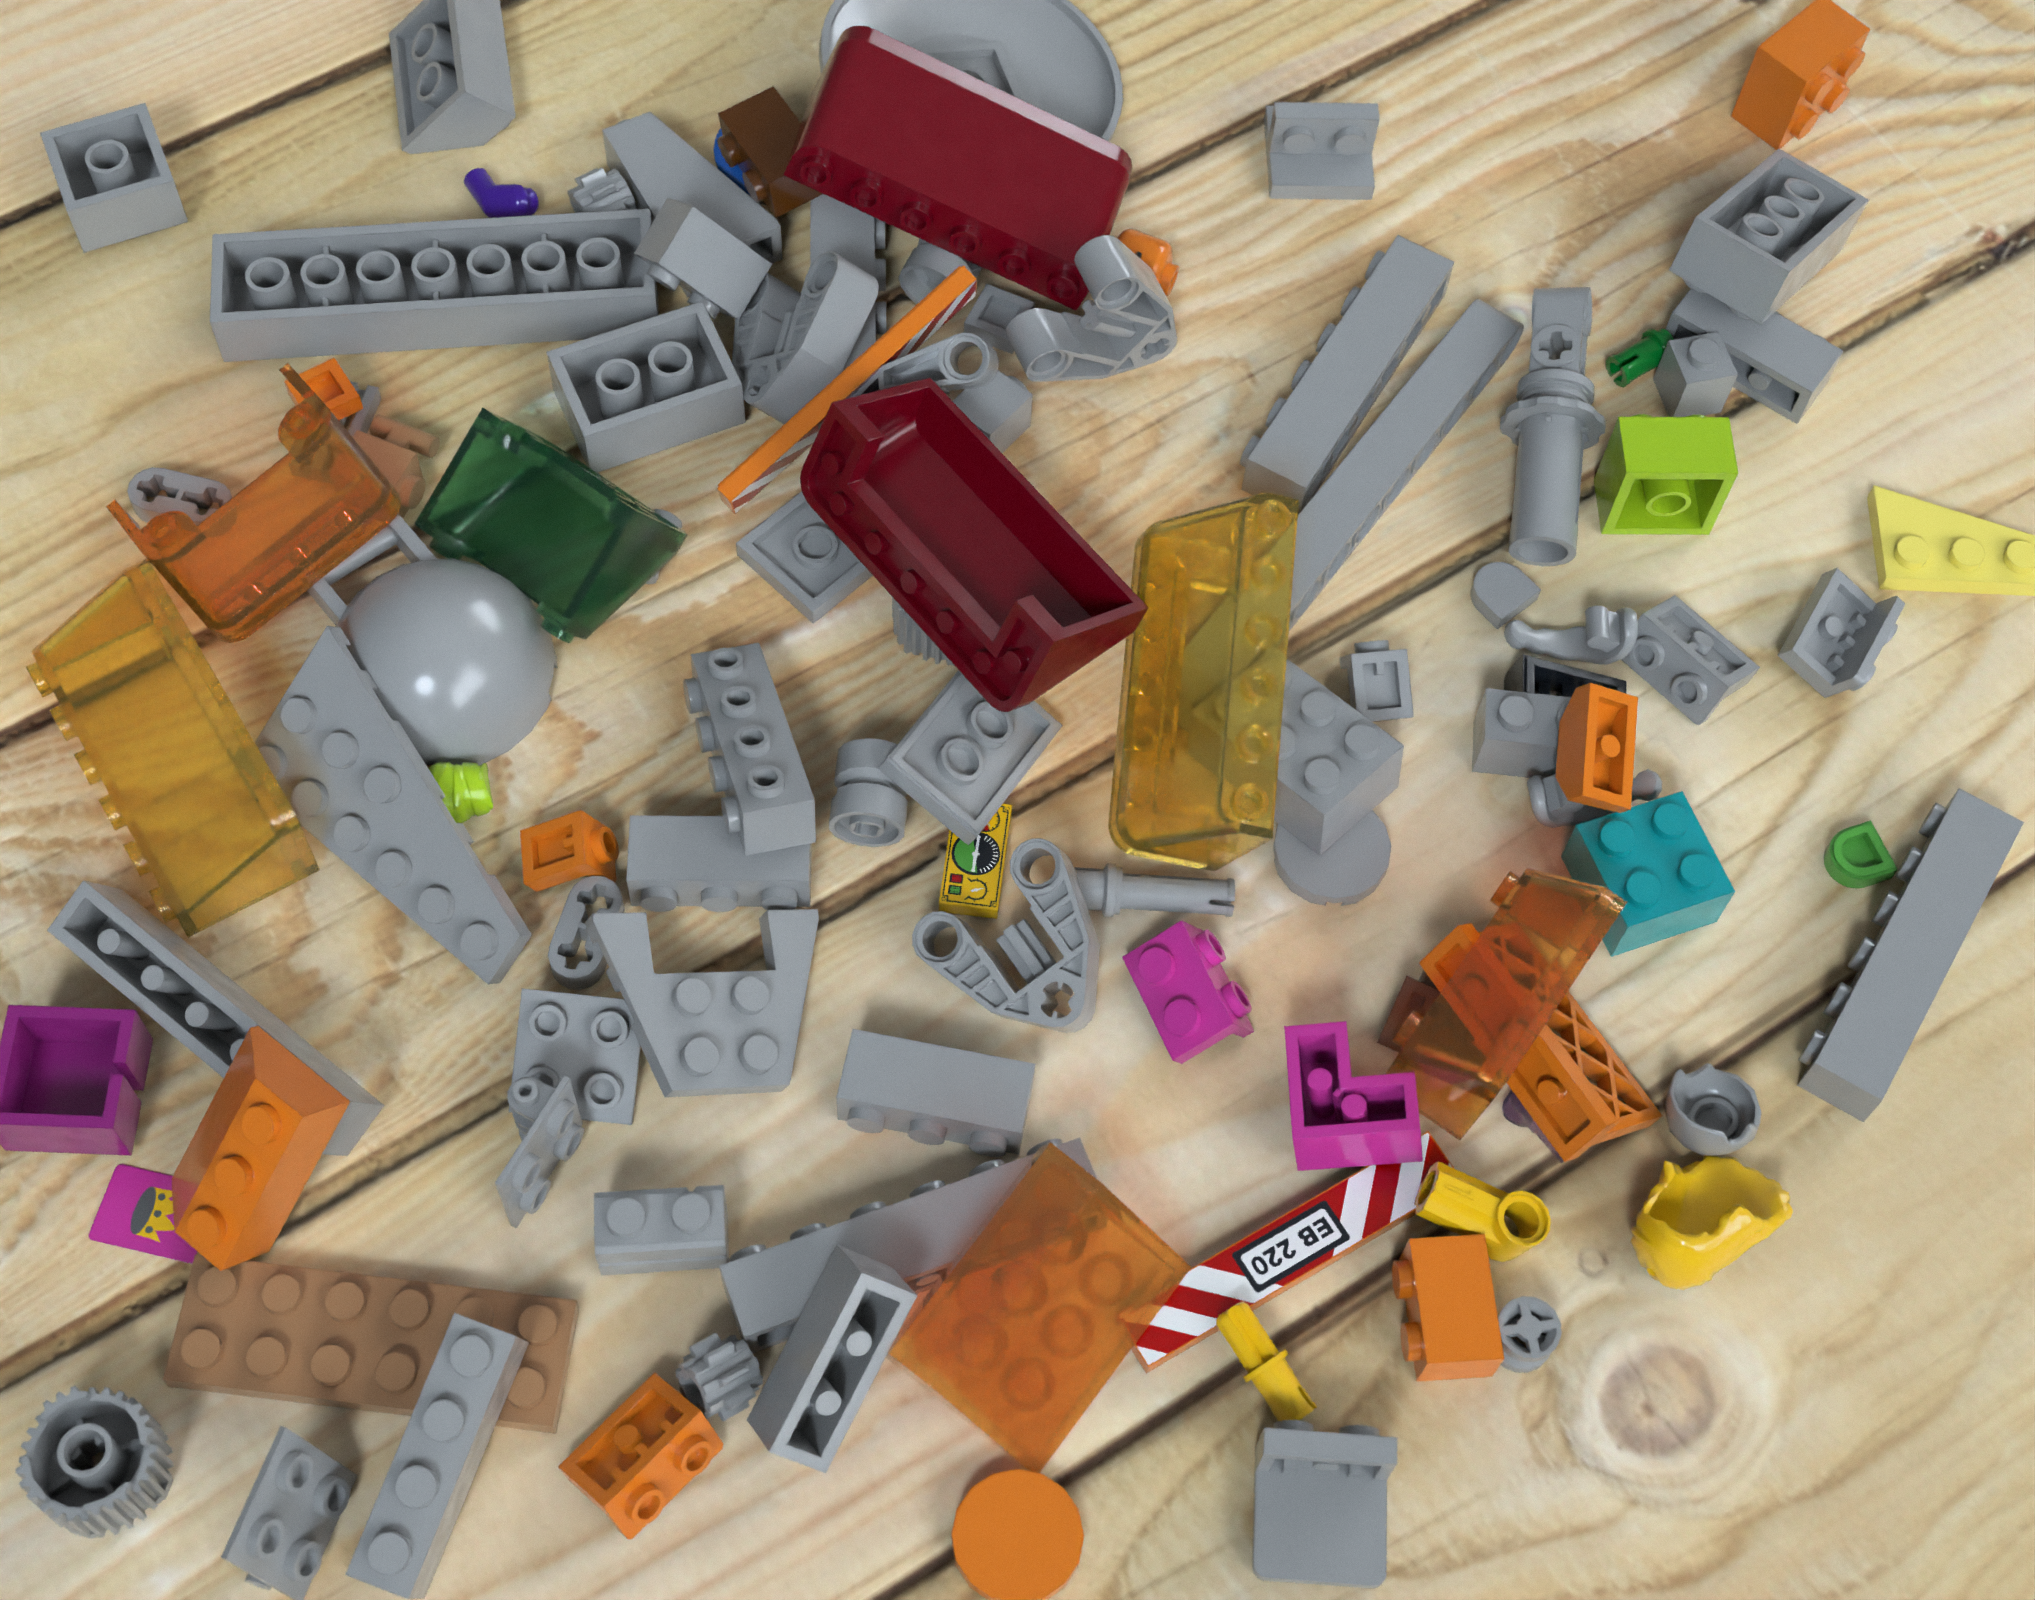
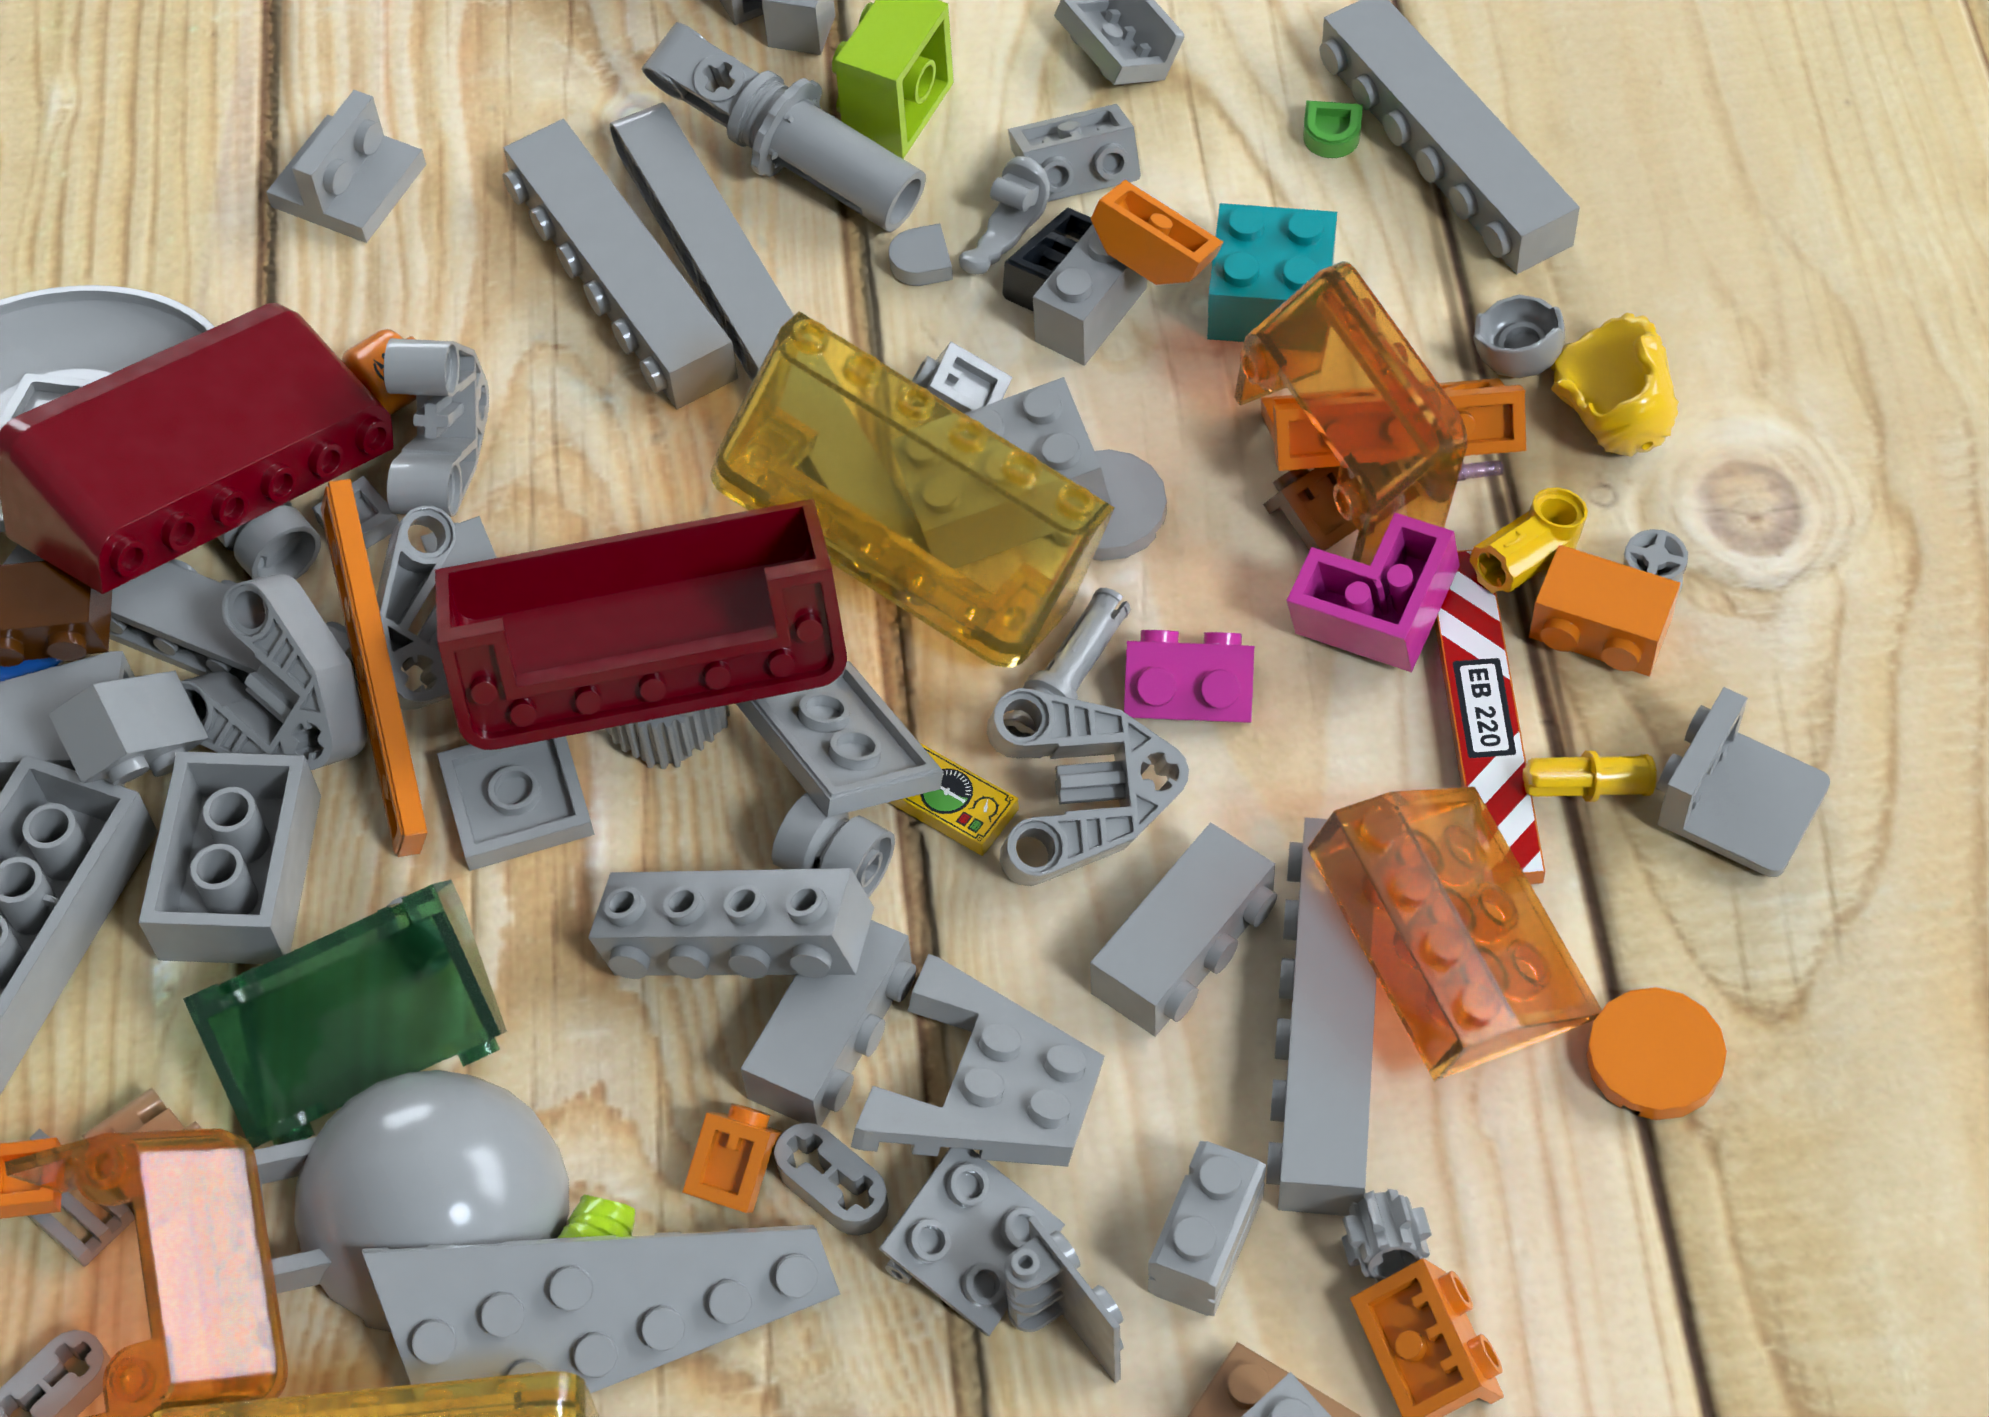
camera: 55 degrees left, 5 degrees down
(831, 1359) = (1432, 1113): light grey brick -> none
(1554, 809) = (1161, 304): light grey piece -> none
(1639, 357) = (747, 31): green pin -> none

